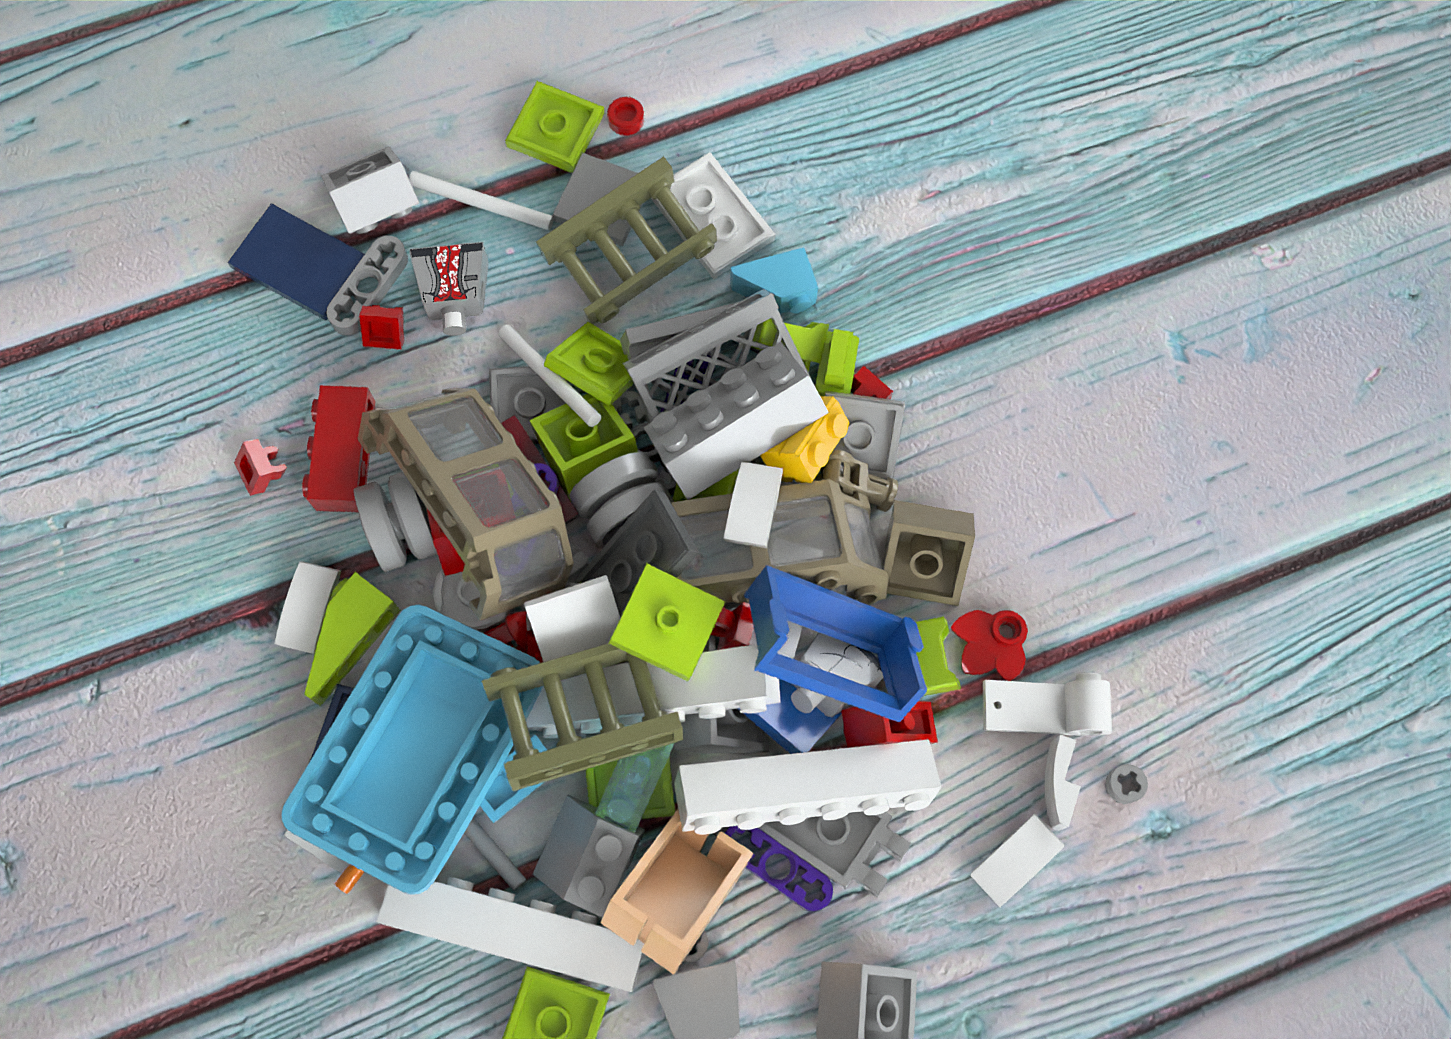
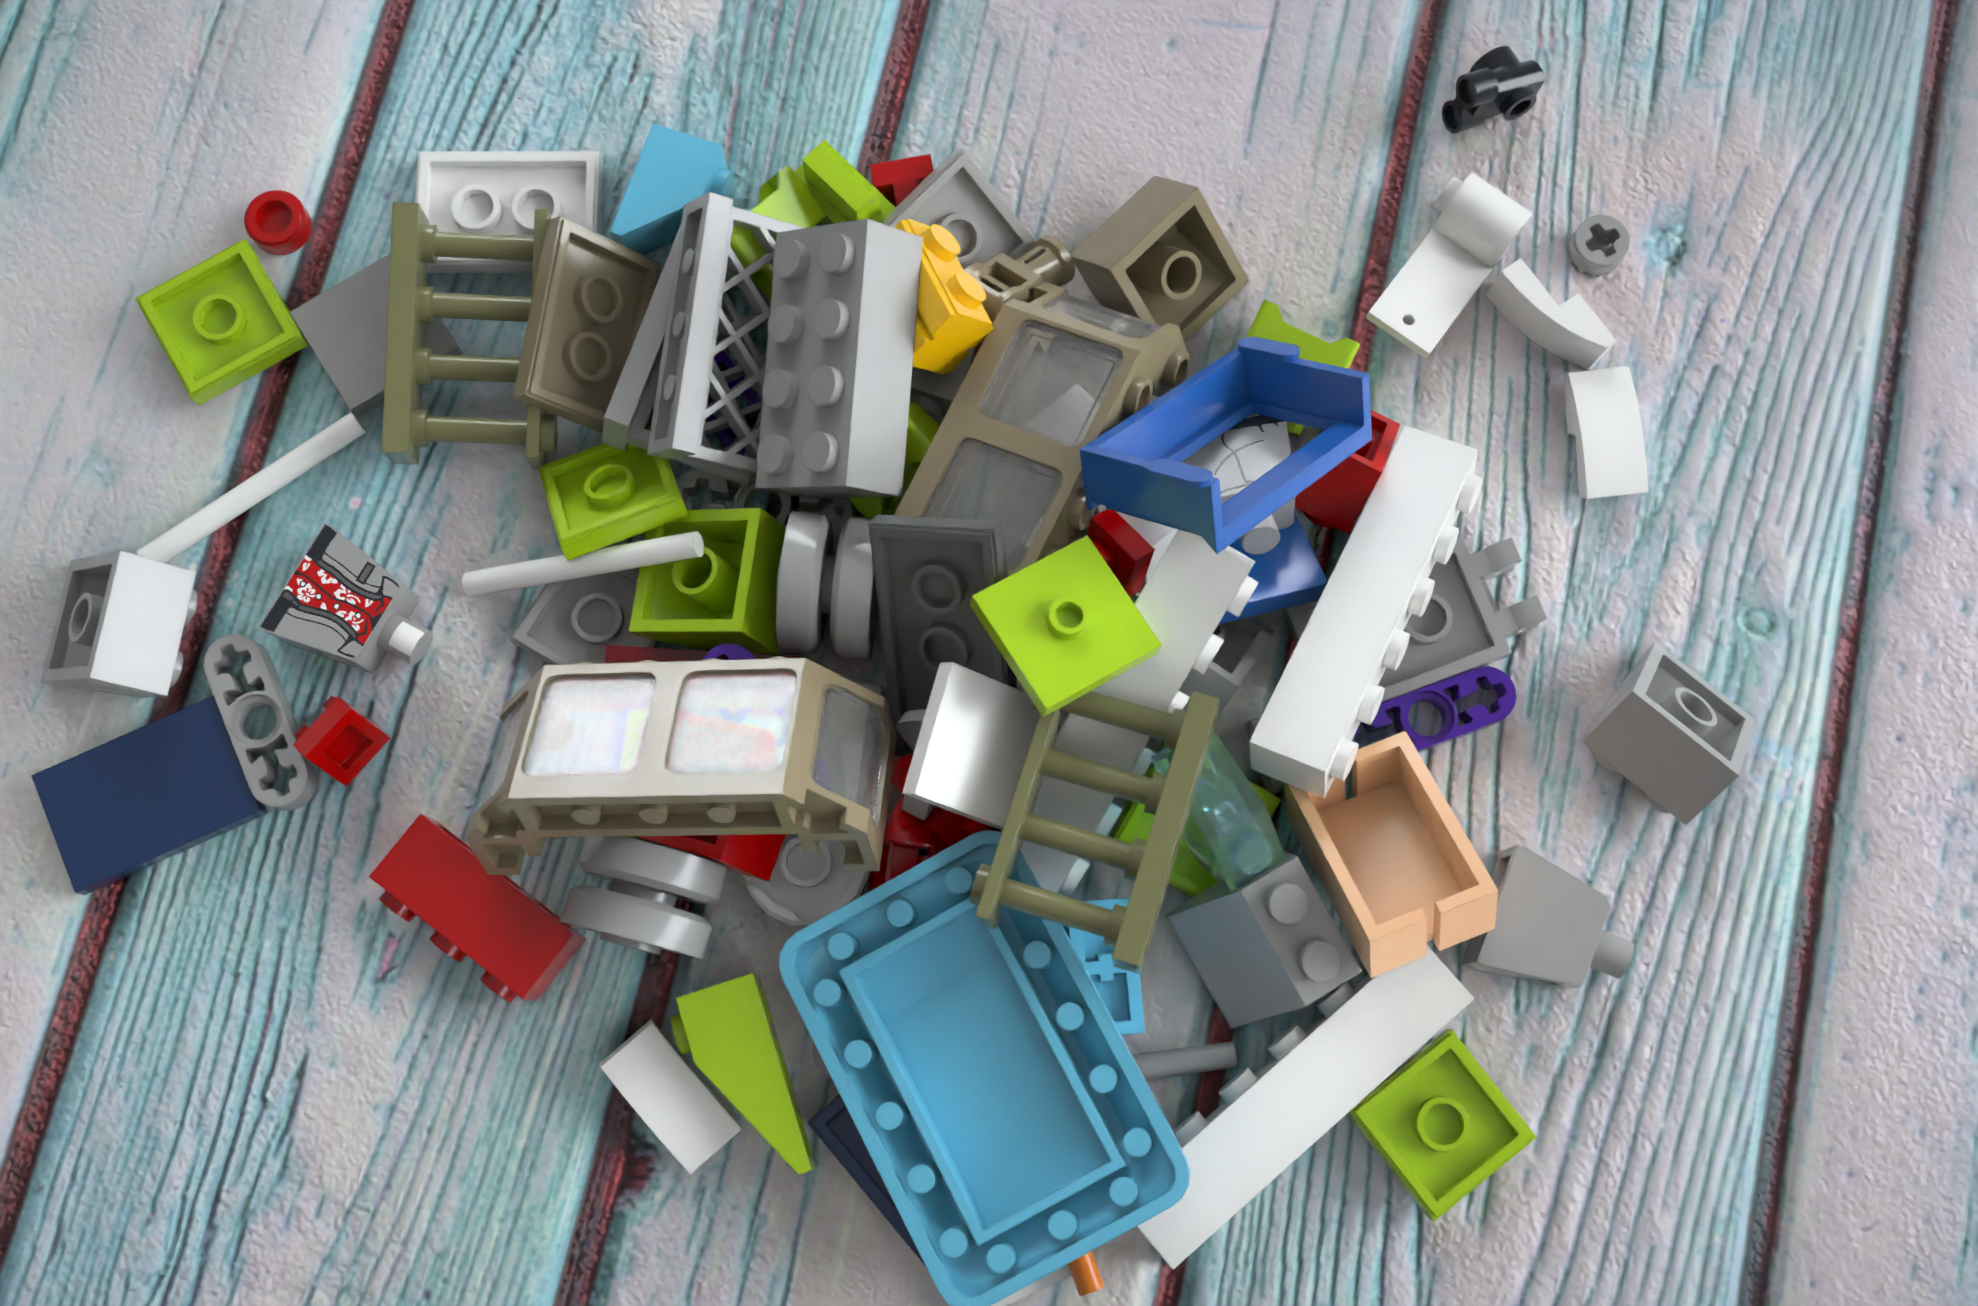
camera: 55 degrees left, 5 degrees up
(255, 467) = (417, 1042): tile -> none
(673, 284) = (582, 322): none -> dark tan tile
(753, 505) = (977, 414): white slope -> none
(987, 647) = (1324, 283): red plate -> none
(1174, 663) = (1493, 87): none -> black plate

